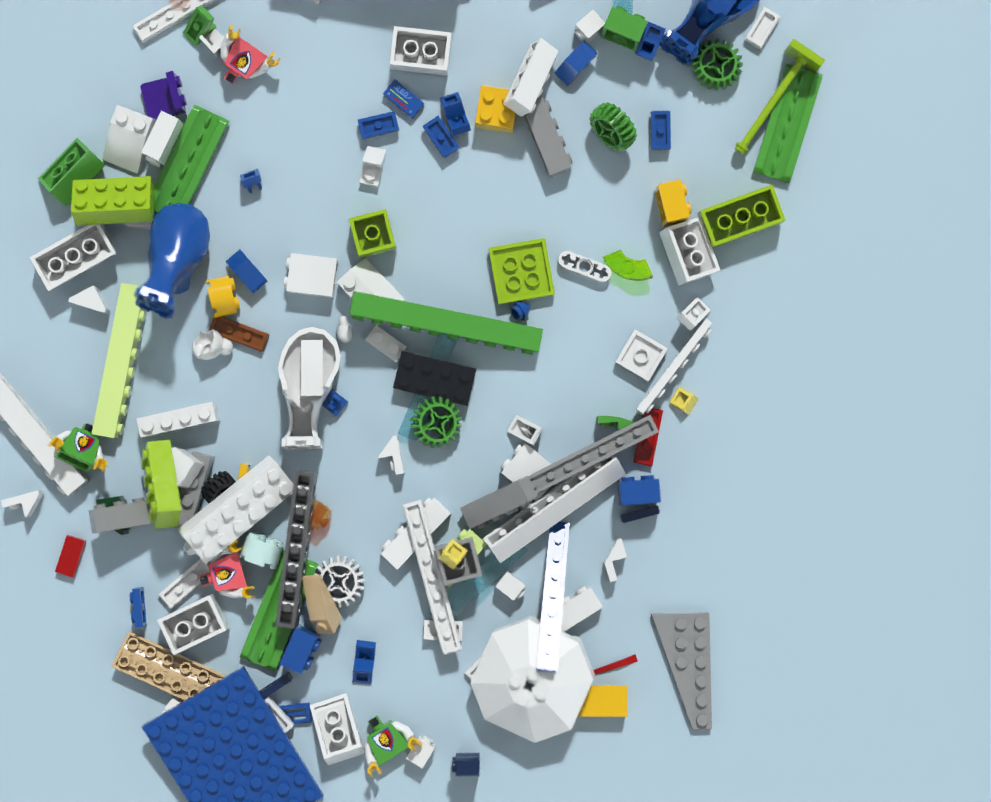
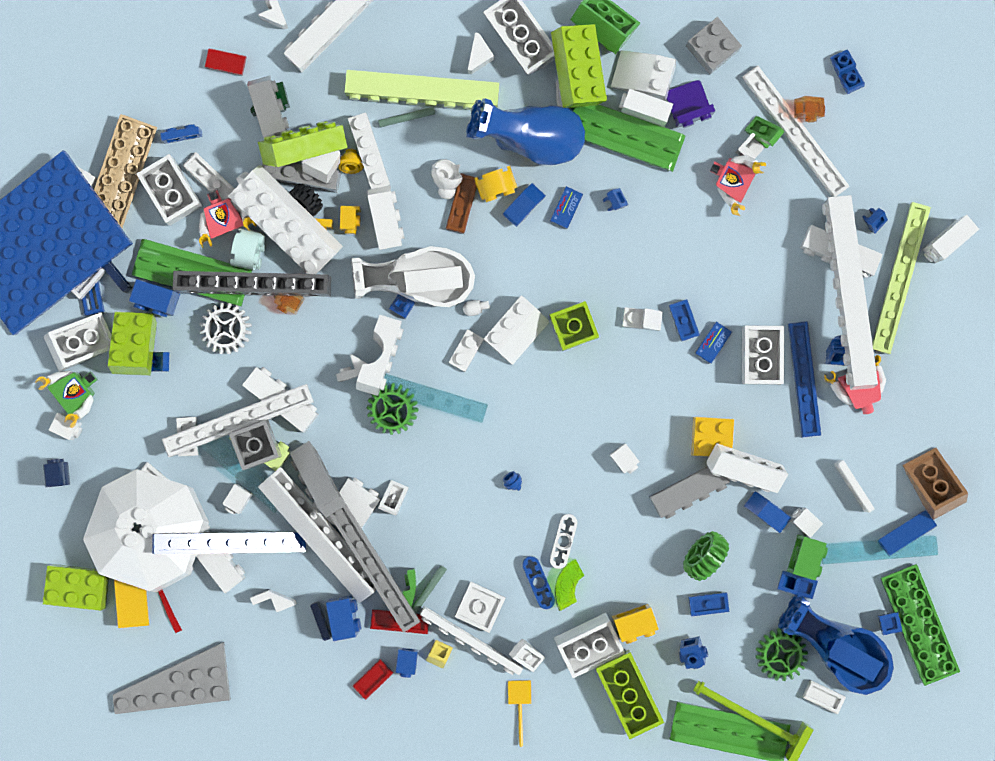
camera: 90 degrees right, 0 degrees up
(79, 448) = (330, 60): torso -> none
(107, 66) = (713, 45): none -> light grey brick
(146, 379) = (406, 117): none -> sand green bar
(185, 439) = (350, 162): none -> yellow brick
(242, 446) = (349, 219): none -> yellow brick
(244, 409) = (385, 217): none -> white brick
(254, 229) = (566, 207): none -> blue tile
(311, 275) = (526, 269): white brick -> none
(321, 607) = (197, 314): tan slope -> none
(344, 675) = (132, 343): none -> lime piece
(400, 437) = (372, 375): none -> white arch
(434, 378) = (436, 402): black plate -> none
(441, 137) = (678, 384): blue plate -> none
(446, 322) = (492, 407): bright green brick -> none
(449, 13) = (804, 379): none -> blue tile
(452, 554) = (260, 439): light yellow slope -> none
(455, 114) = (703, 396): blue slope -> none
(509, 197) = (625, 459): none -> white brick
(521, 271) = (552, 478): lime plate -> none
(582, 756) = (75, 587): none -> lime piece
(618, 404) = (428, 589): none -> sand green bar
(638, 296) = (546, 585): none -> blue beam
(688, 433) = (406, 662): none -> blue brick
(702, 468) = (373, 679): none -> red tile
(707, 150) = (693, 653): none -> blue brick
(730, 325) = (519, 693): none -> yellow piece

